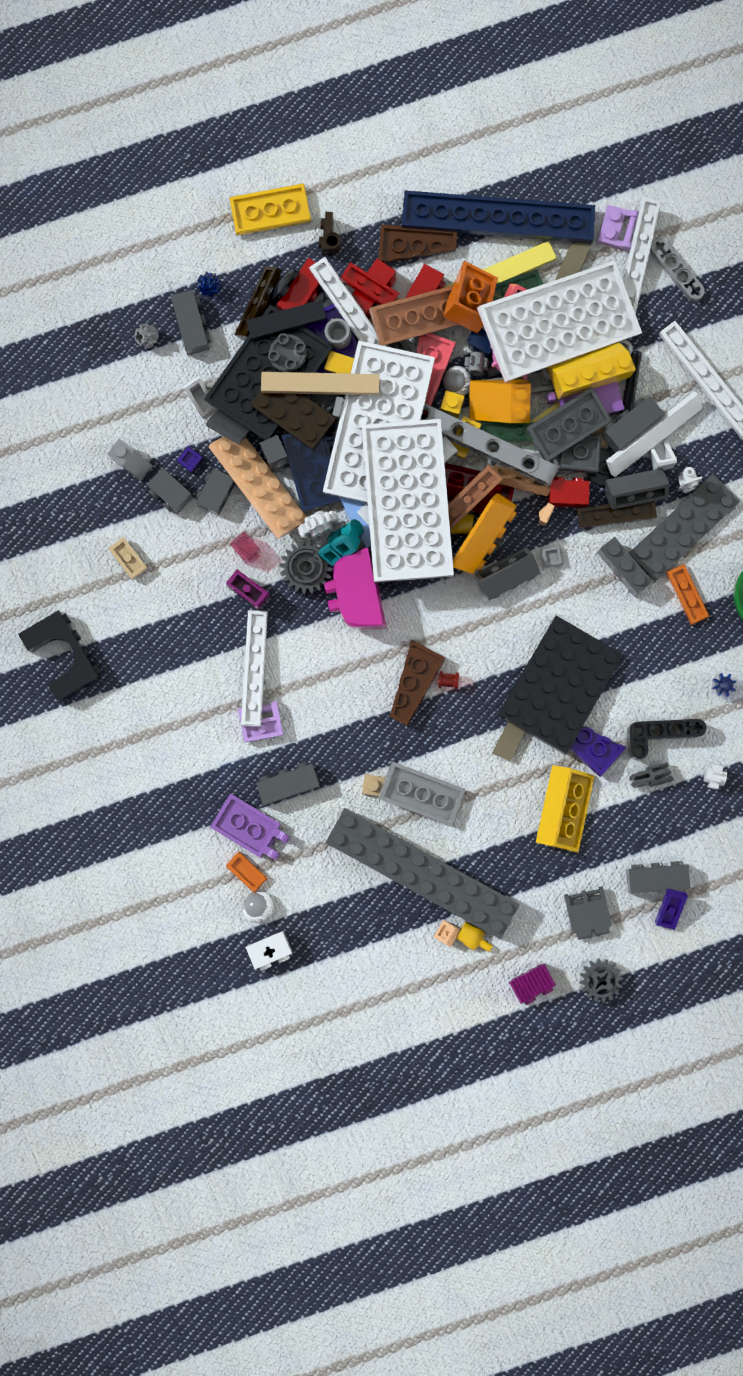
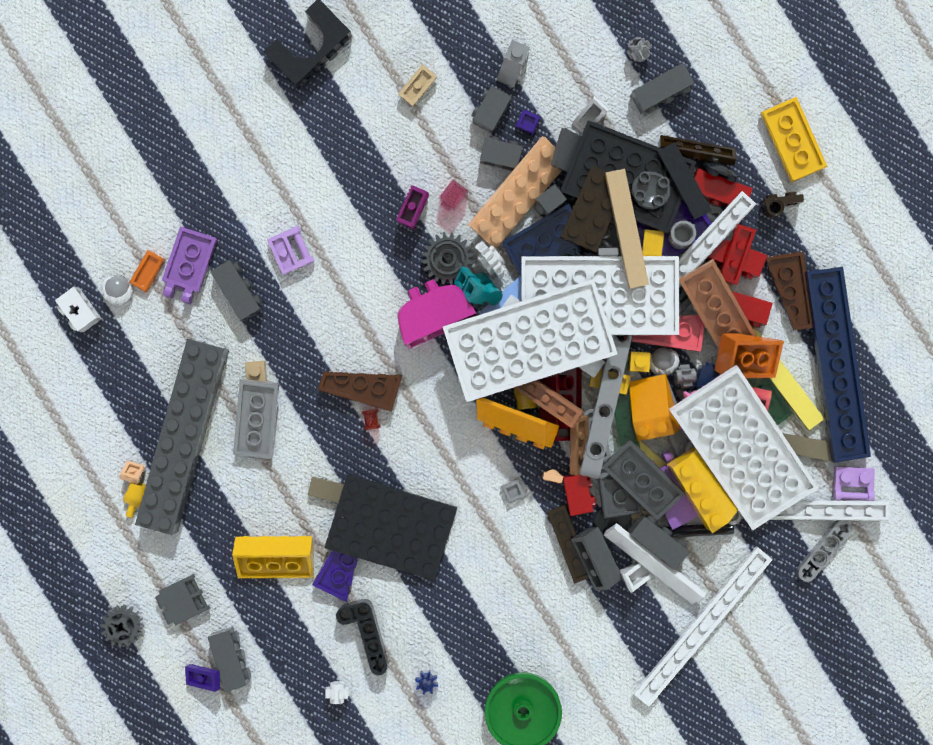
camera: 70 degrees right, 5 degrees up
(208, 284) = (704, 97): clear blue gear -> none
(254, 668) = (339, 232): white tile -> none
(507, 573) = (485, 453): dark grey brick -> none
(532, 983) = (103, 562): magenta brick -> none
(624, 566) = (518, 563): dark grey brick -> none
(648, 776) = (323, 631): dark grey arm -> none
(684, 527) = (570, 611): dark grey plate -> none
(687, 594) = (506, 628): orange tile -> none
(688, 480) = (616, 606): white hinge -> none

